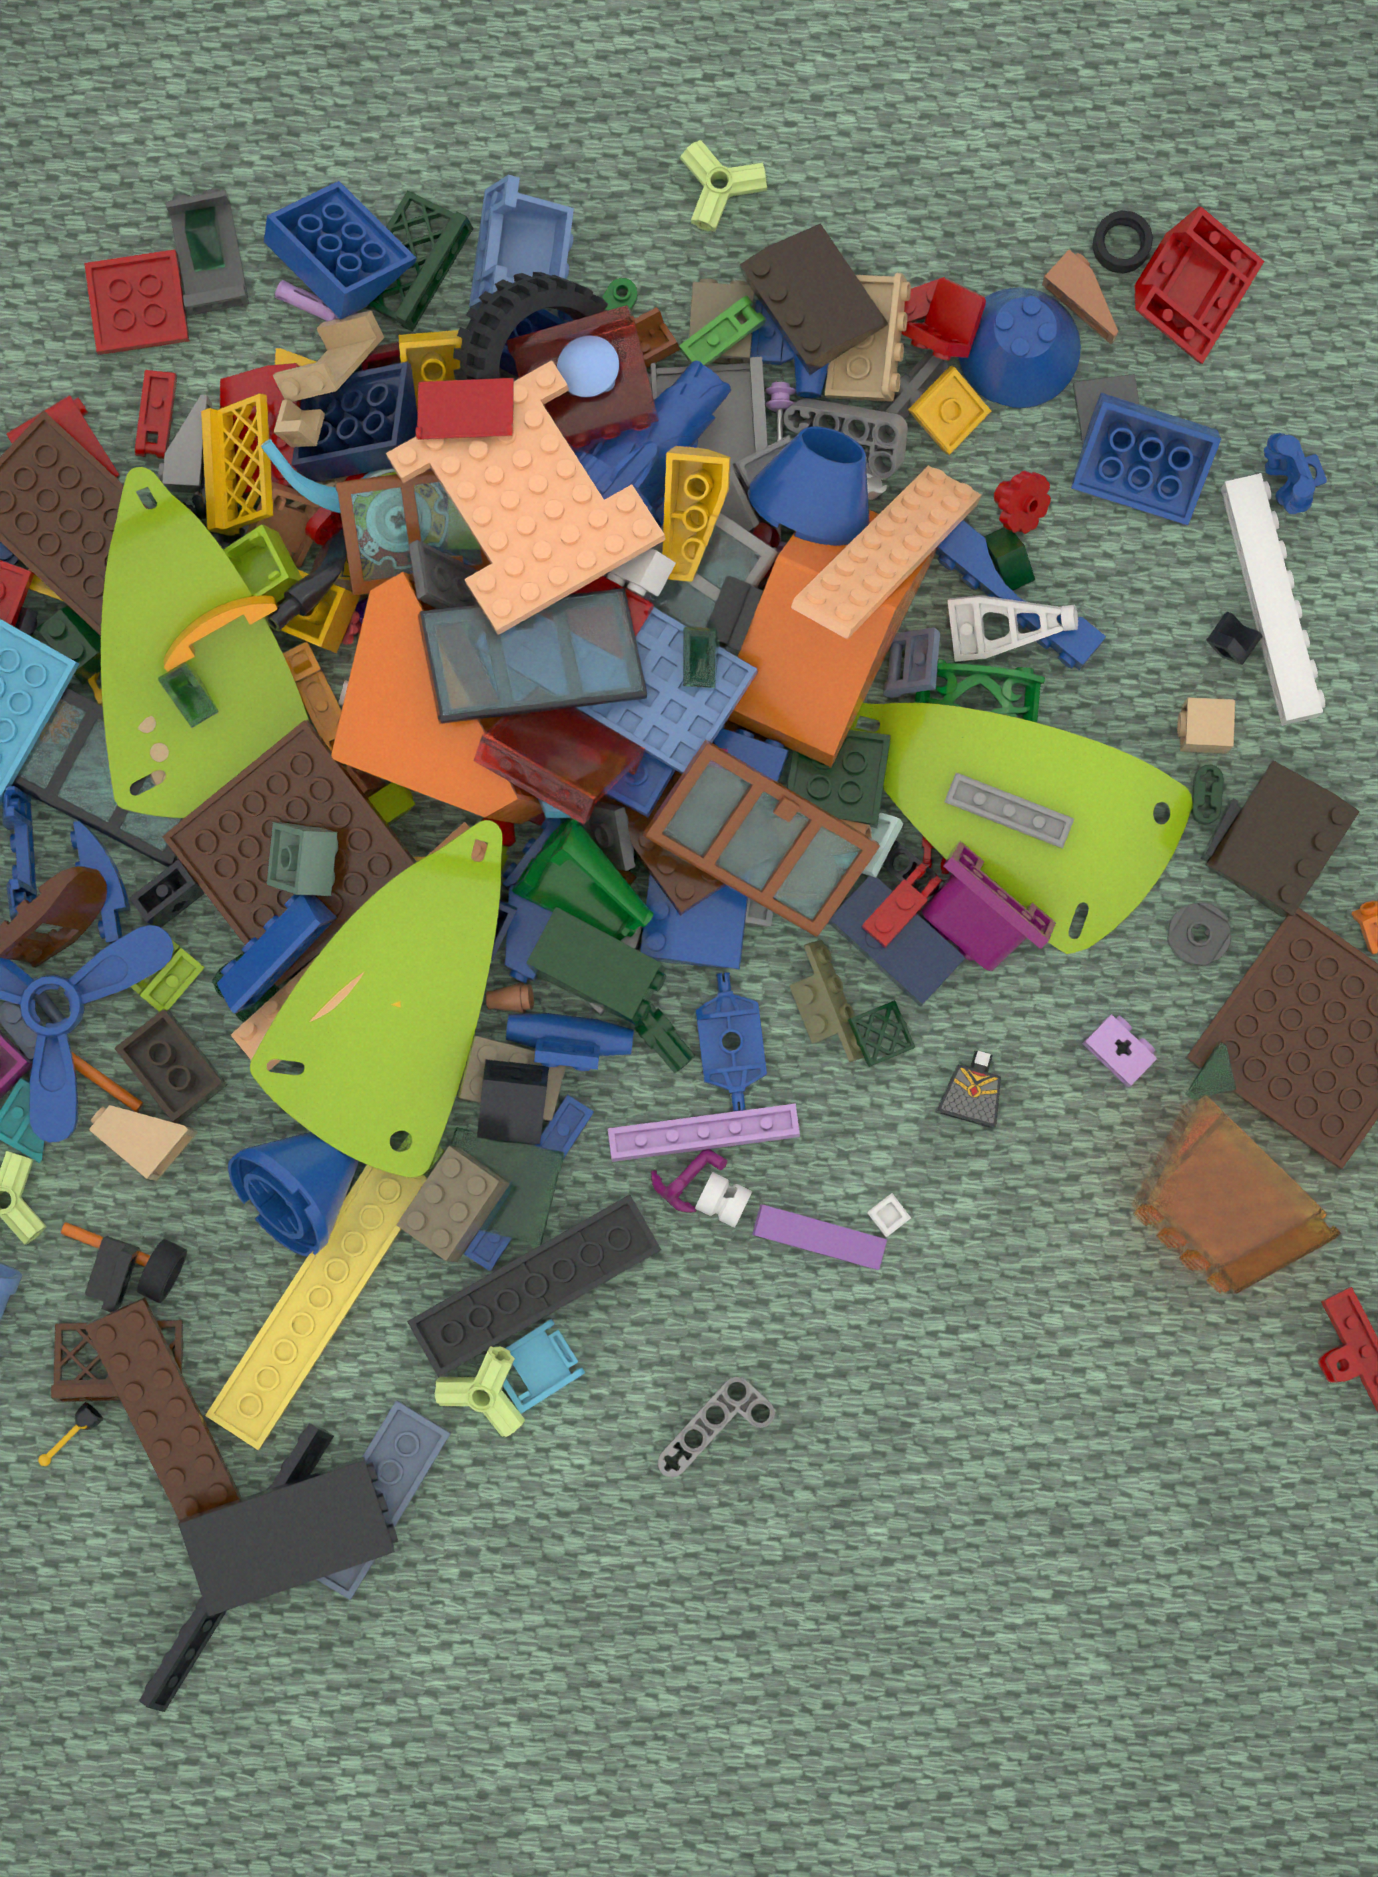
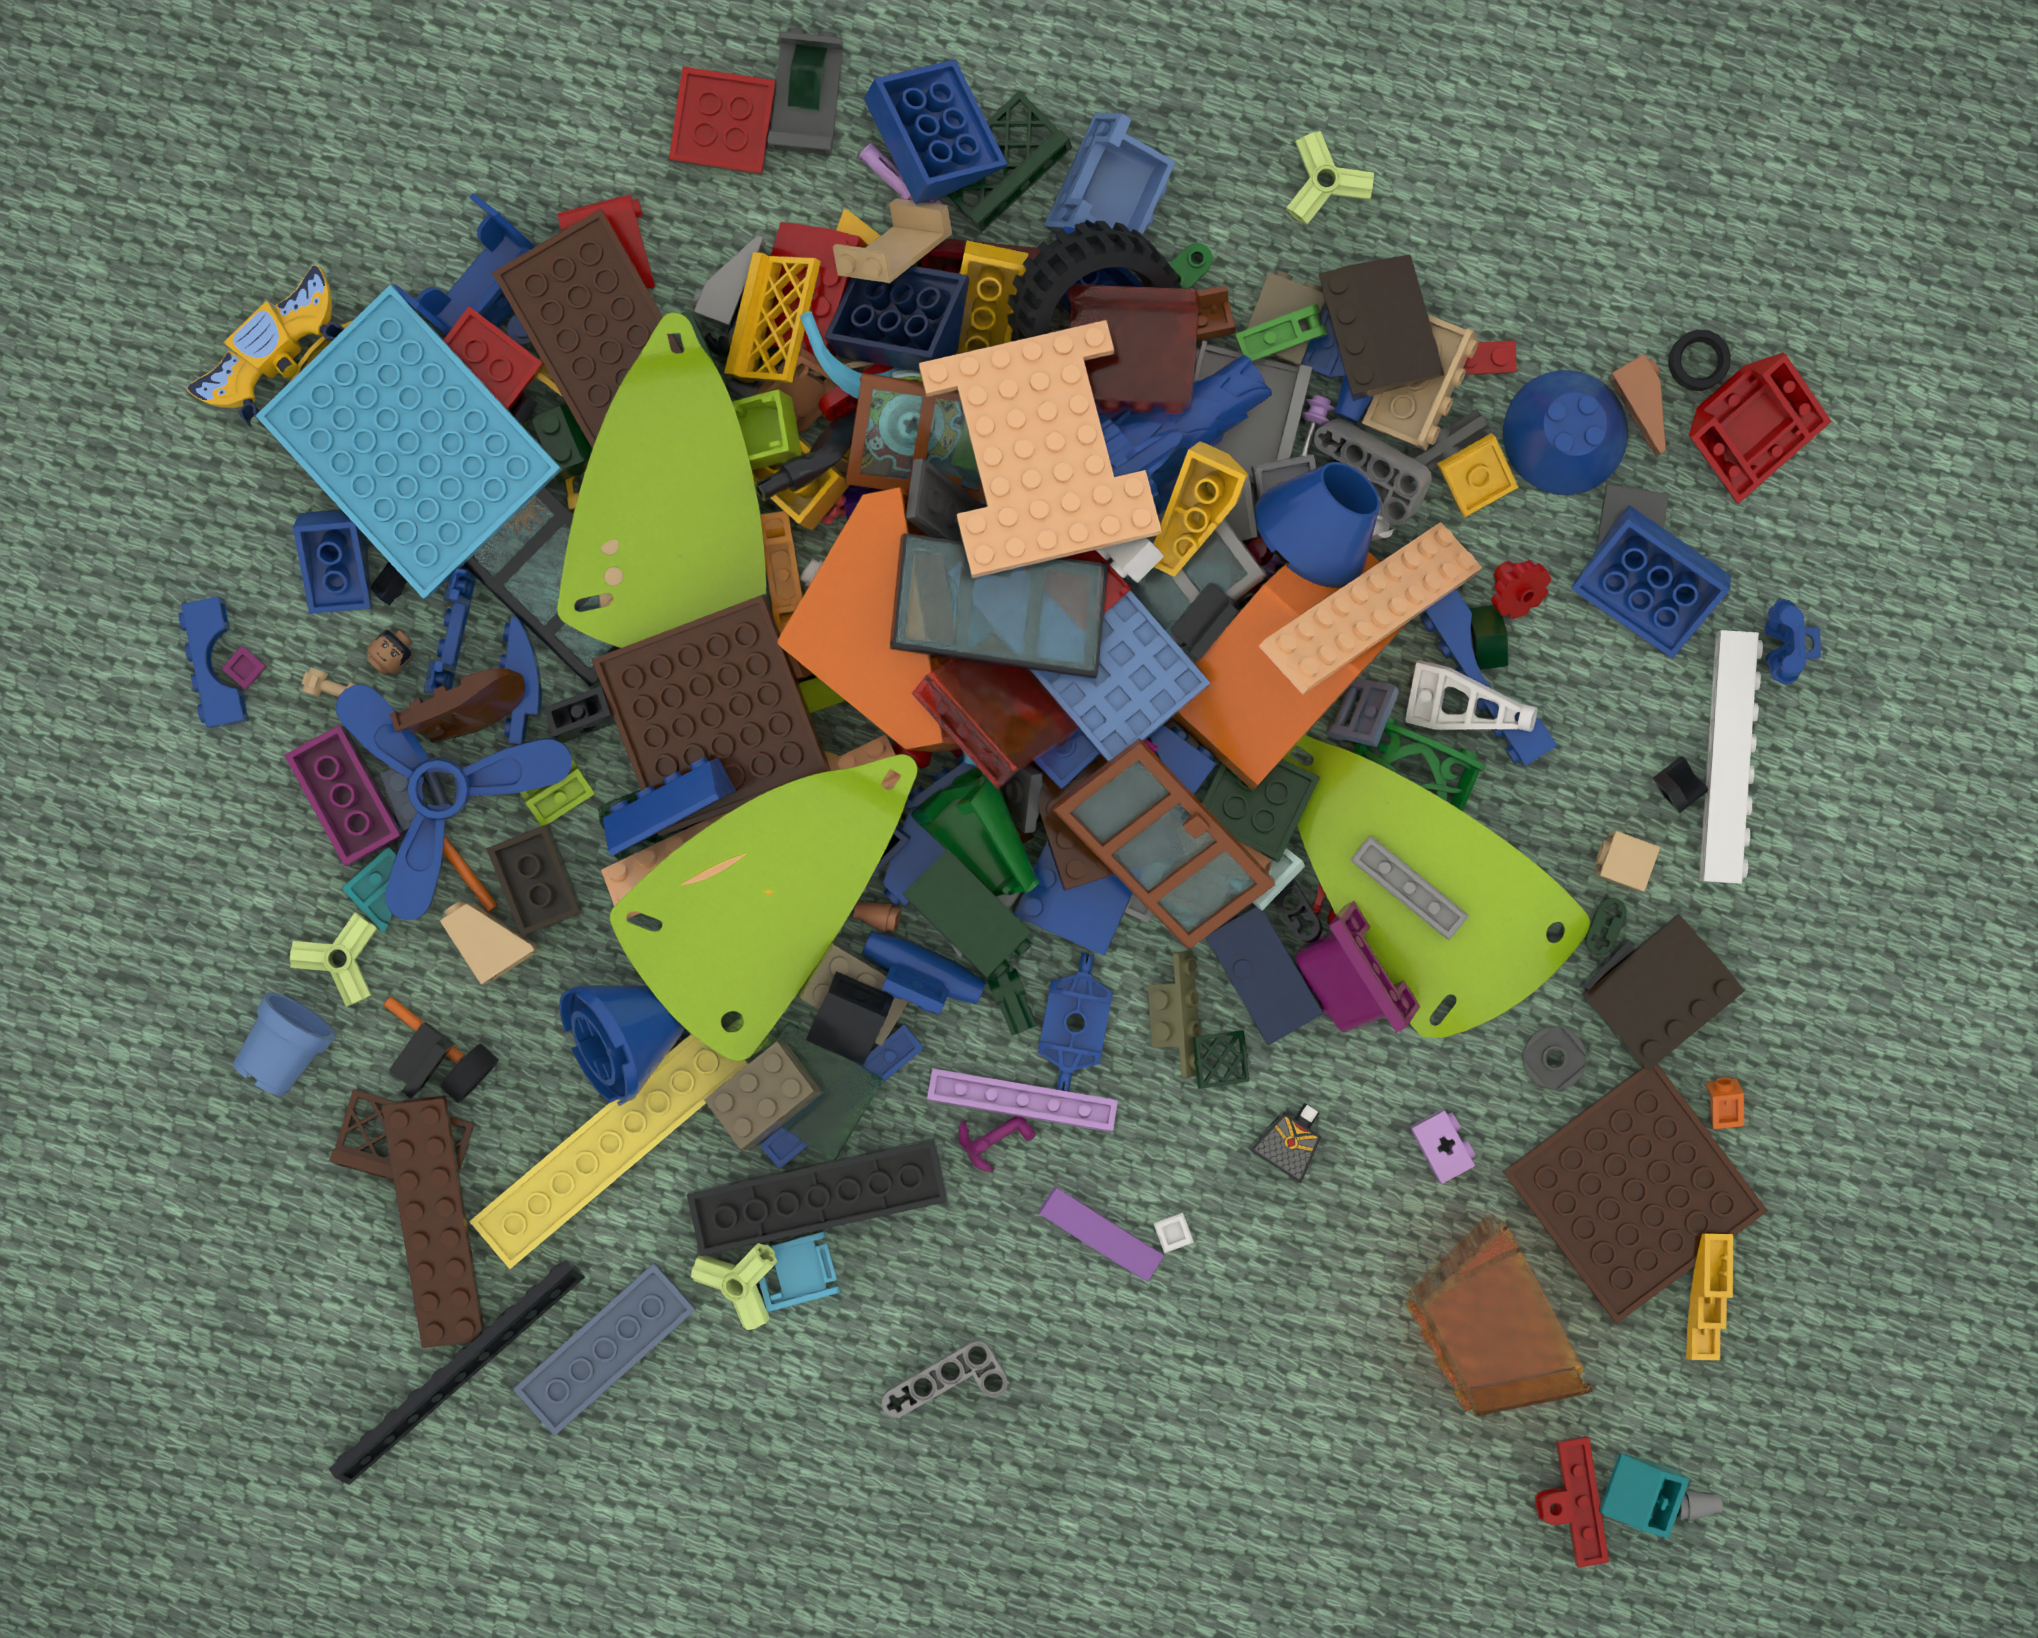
camera: 15 degrees right, 5 degrees up
(85, 1418) = (355, 1188): hinge -> none
(155, 413) = (708, 237): red plate -> none
(188, 694) = (659, 533): clear green slope -> none
(252, 607) = (745, 469): light orange slope -> none
(288, 1535) = (514, 1360): black brick -> none
(298, 426) = (843, 301): tan panel -> none
(302, 859) = (719, 727): sand green slope -> none
(465, 408) = (1008, 344): red piece -> none
(588, 366) = (1140, 334): light blue dish -> none
(700, 656) = (1159, 656): clear green slope -> none
(723, 1199) = (1021, 1170): white wheel -> none
(899, 907) = (1275, 947): red hinge -> none
(949, 321) = (1504, 390): red bracket -> none
(1214, 1076) = (1523, 1200): clear green slope -> none

